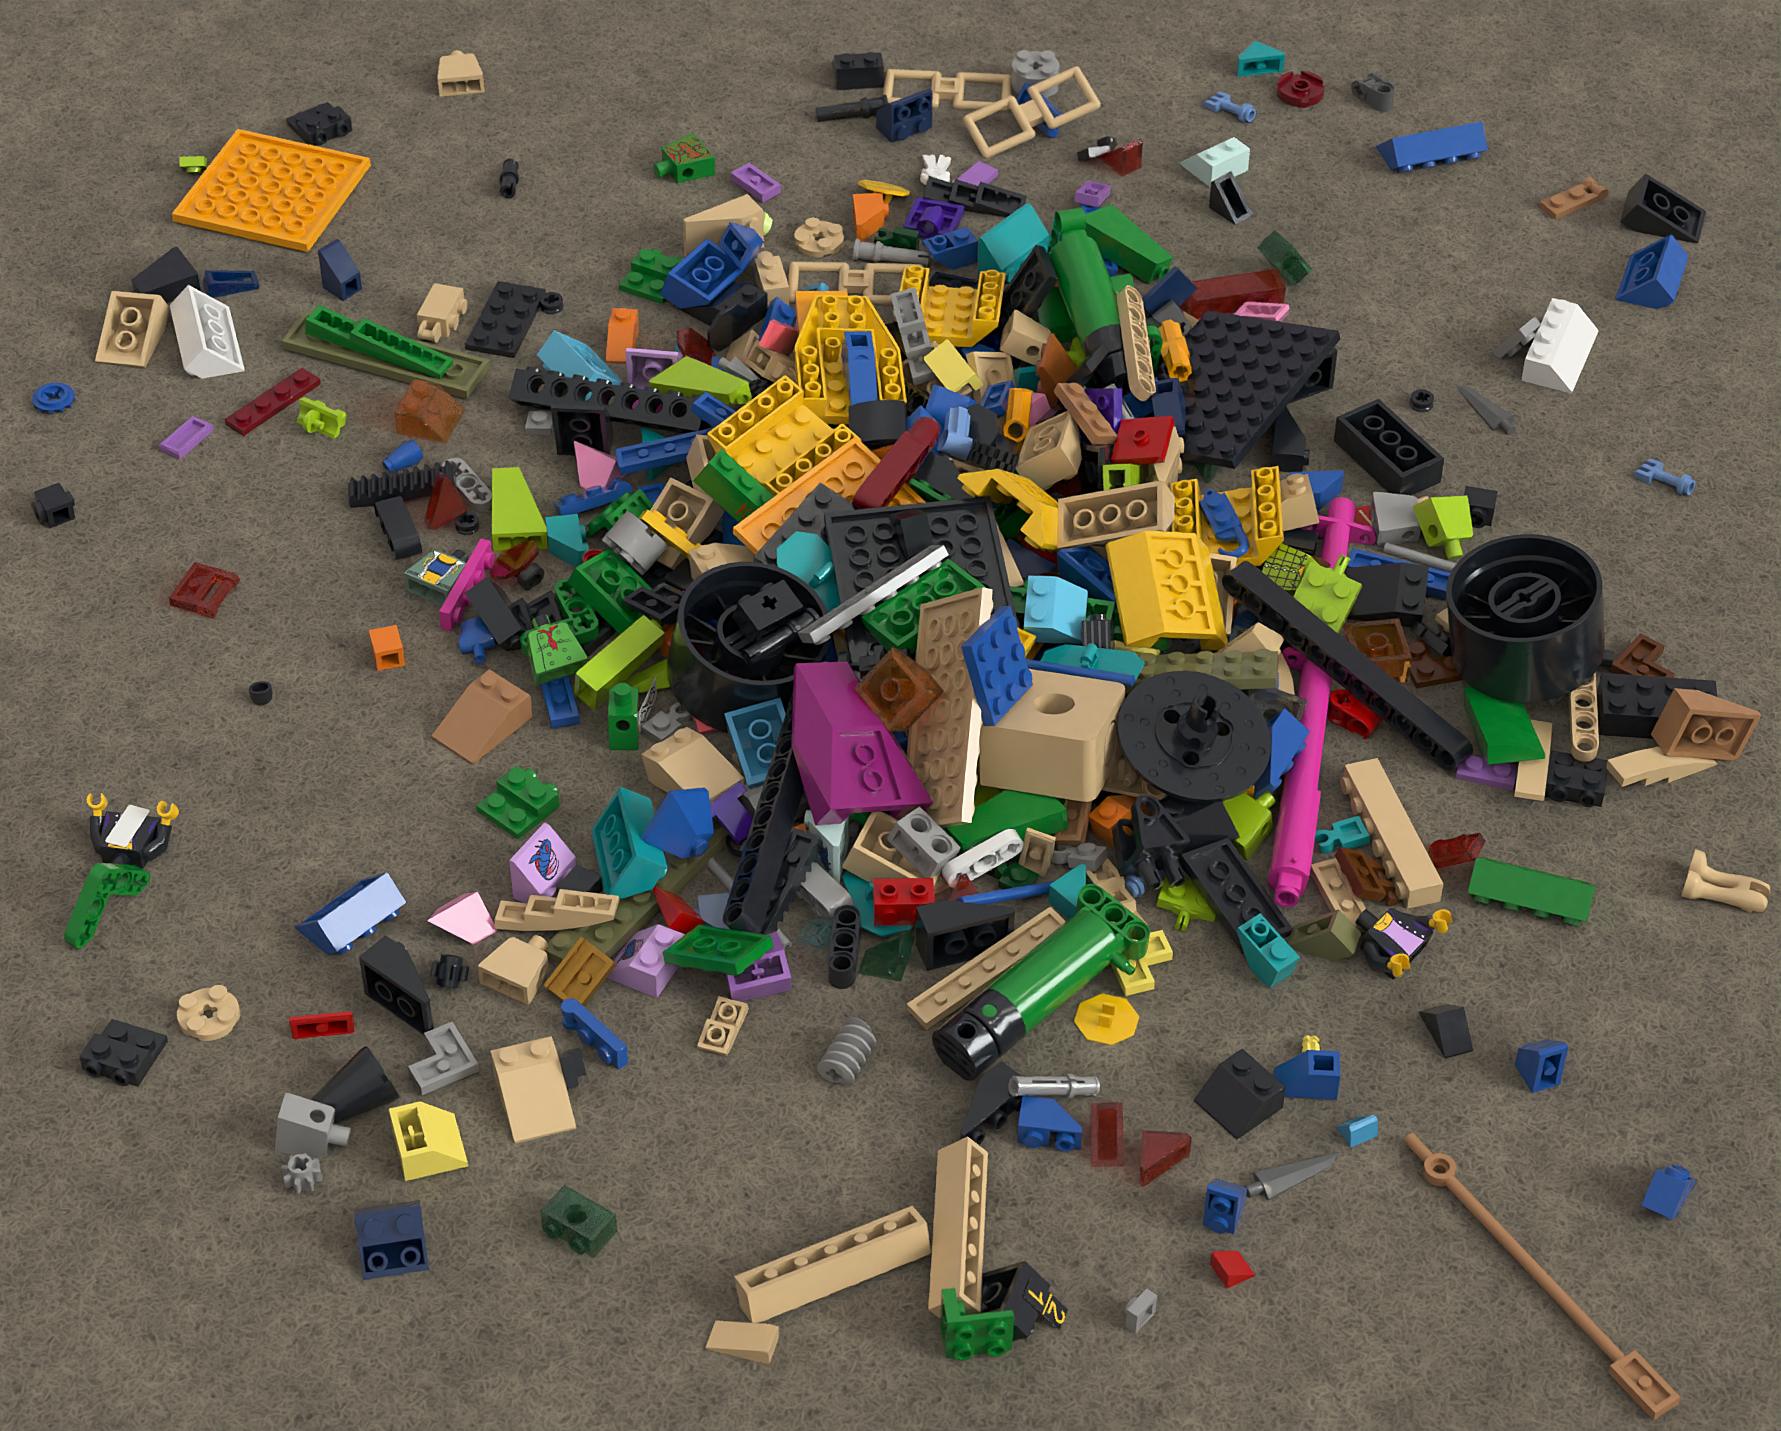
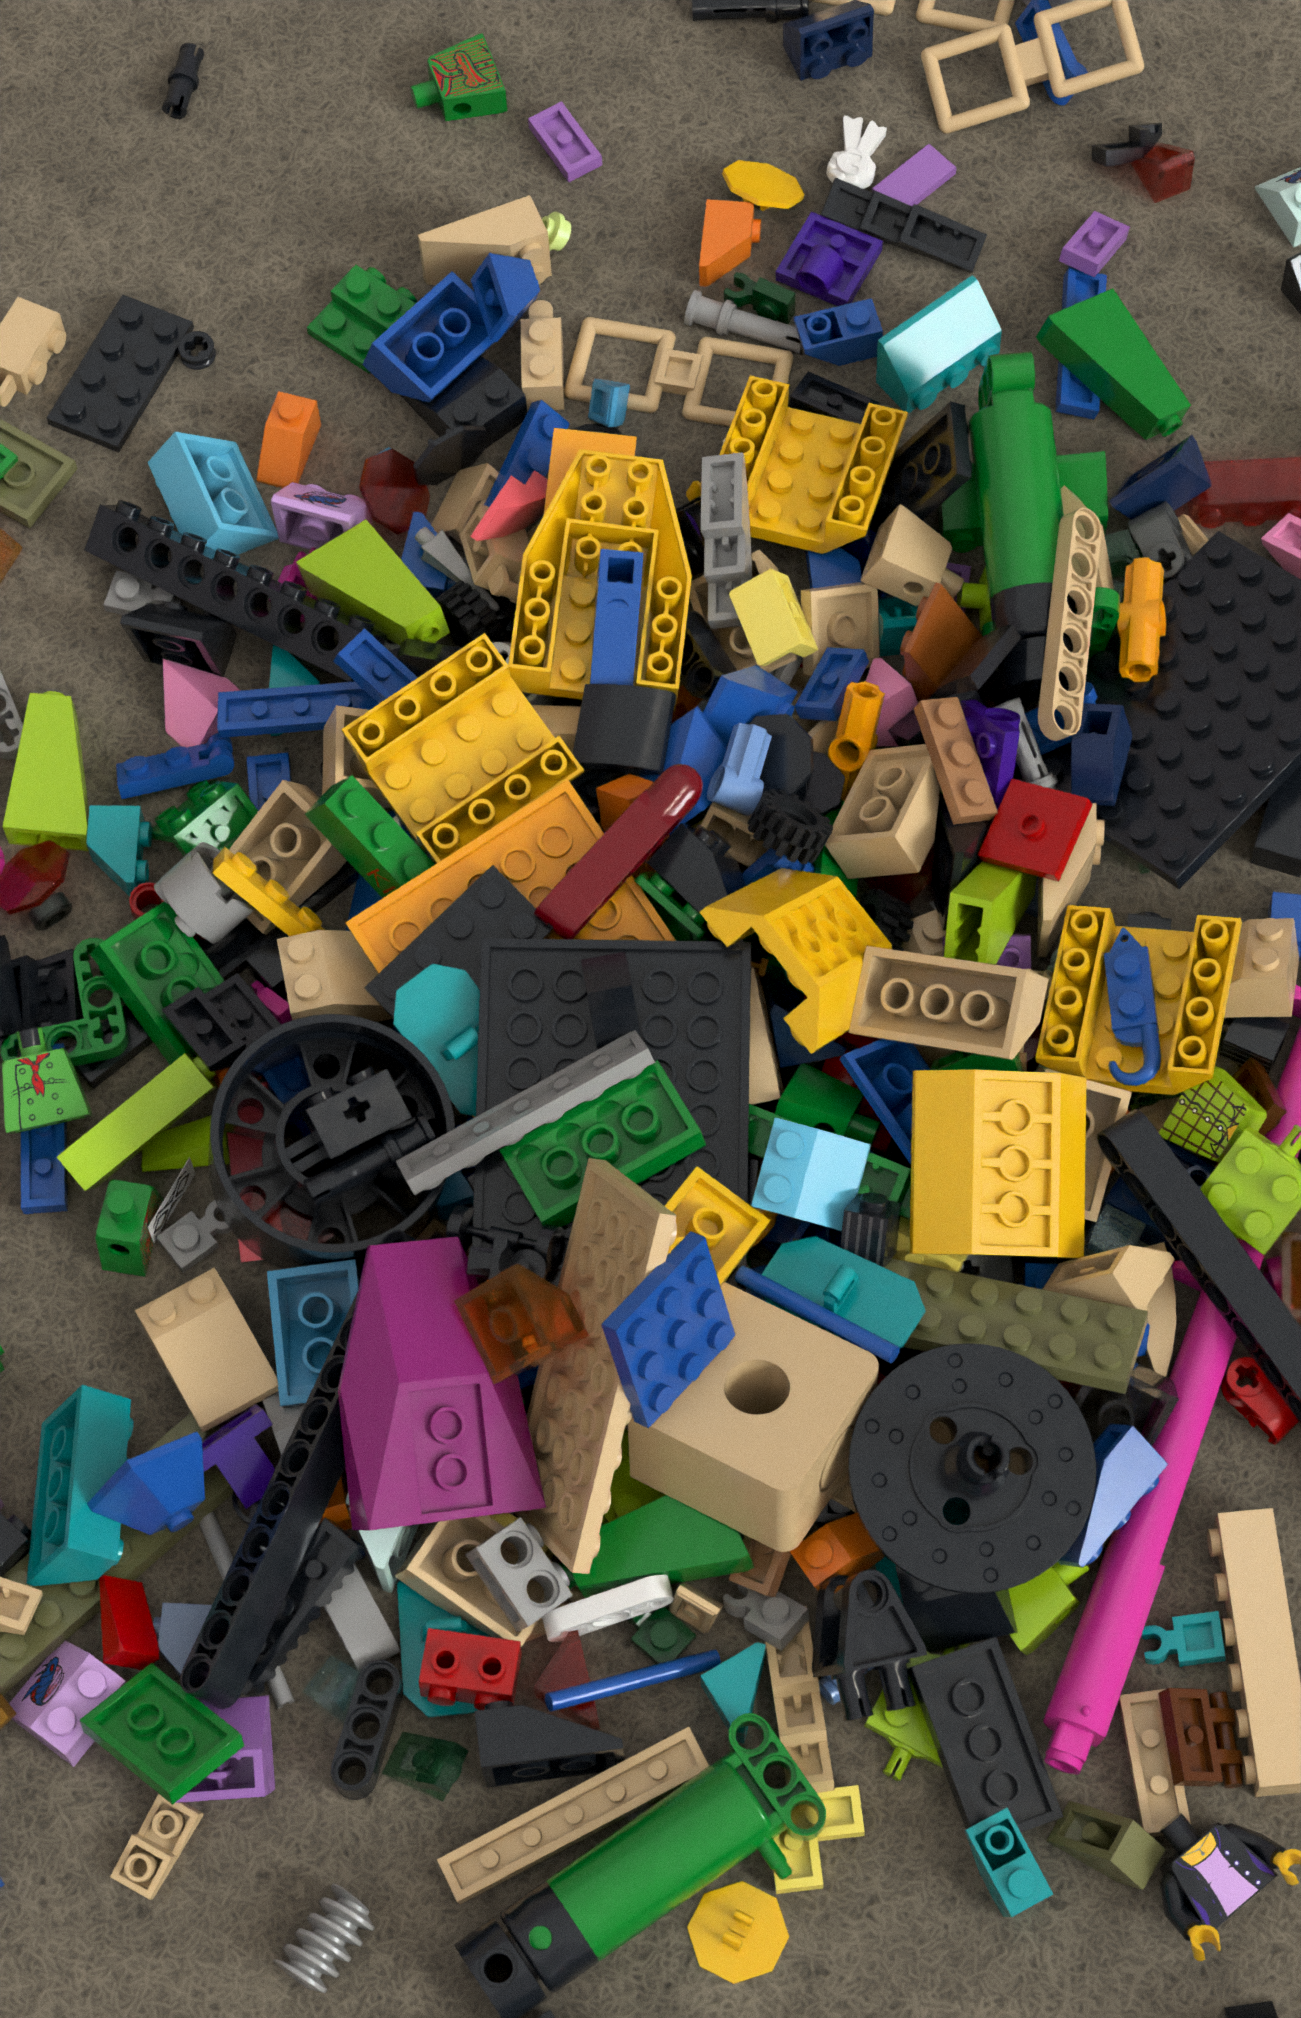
camera: 15 degrees right, 20 degrees up
(830, 242) = (639, 252): tan plate -> none

